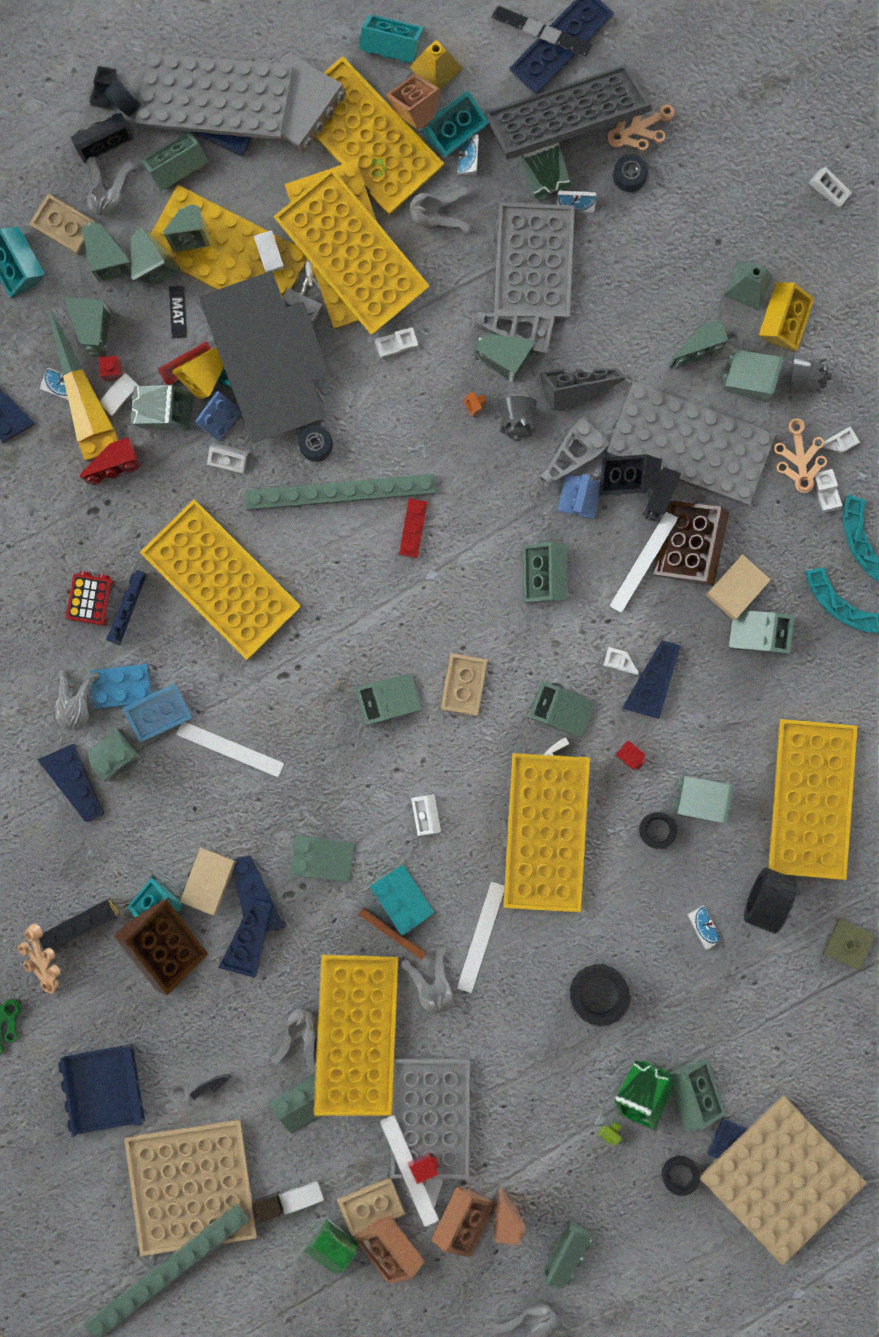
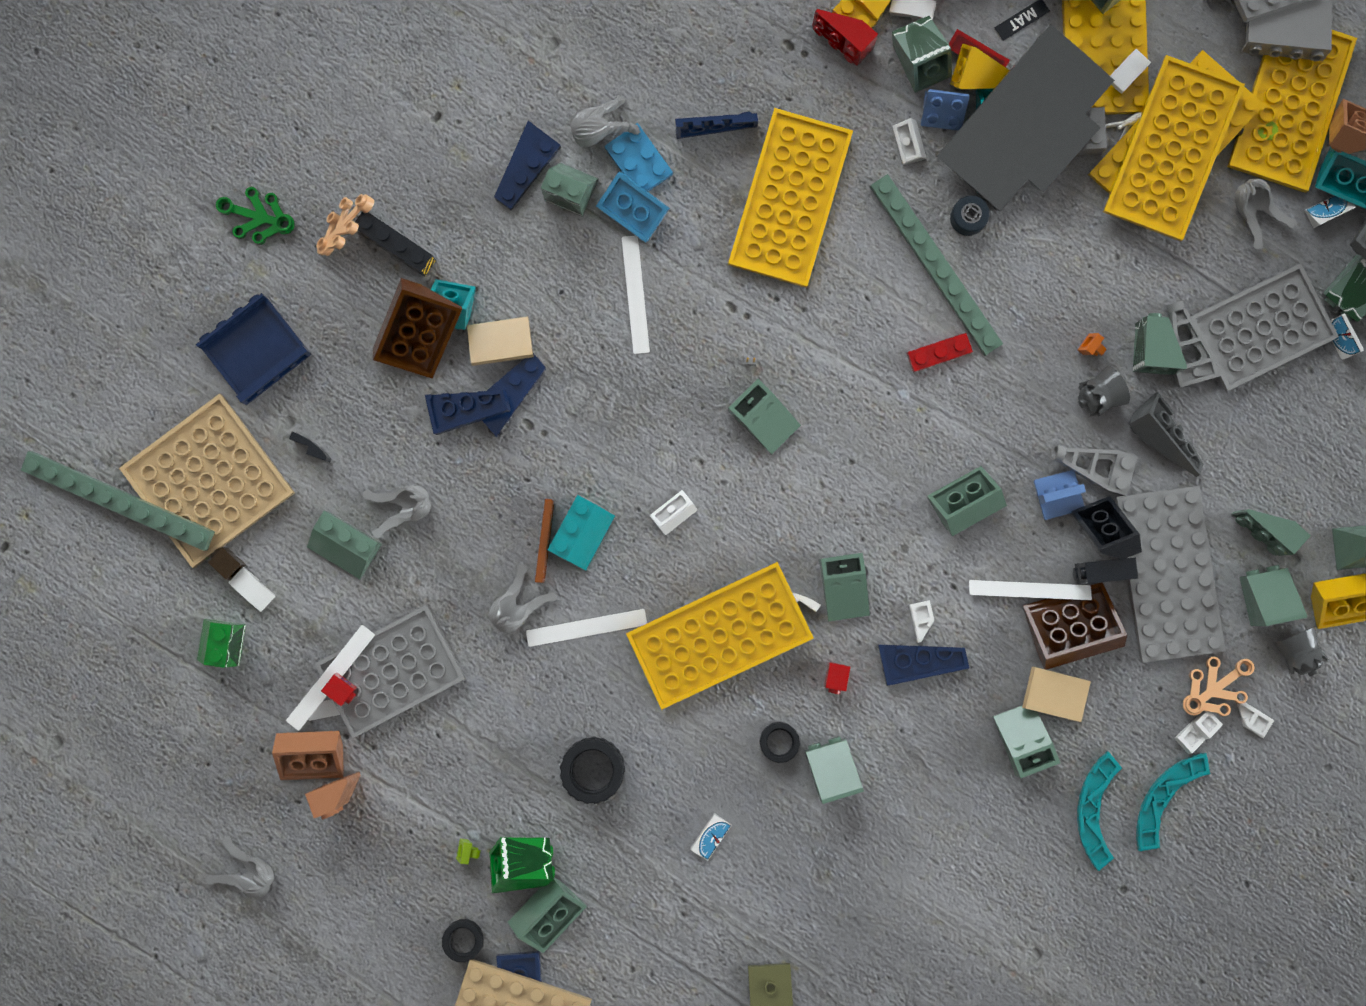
camera: 60 degrees right, 0 degrees up
(89, 598) = (704, 84): panel -> none
(322, 858) = (579, 436): sand green slope -> none
(356, 1035) = (430, 558): yellow plate -> none
(370, 1204) = (278, 660): tan tile -> none
(389, 1250) = (246, 699): nougat slope -> none
(396, 343) = (1108, 240): white slope -> none
(464, 684) = (817, 481): tan tile -> none
(567, 1255) = (329, 871): sand green slope -> none
(770, 900) = (772, 887): black tyre -> none
(812, 799) = (891, 876): yellow plate -> none

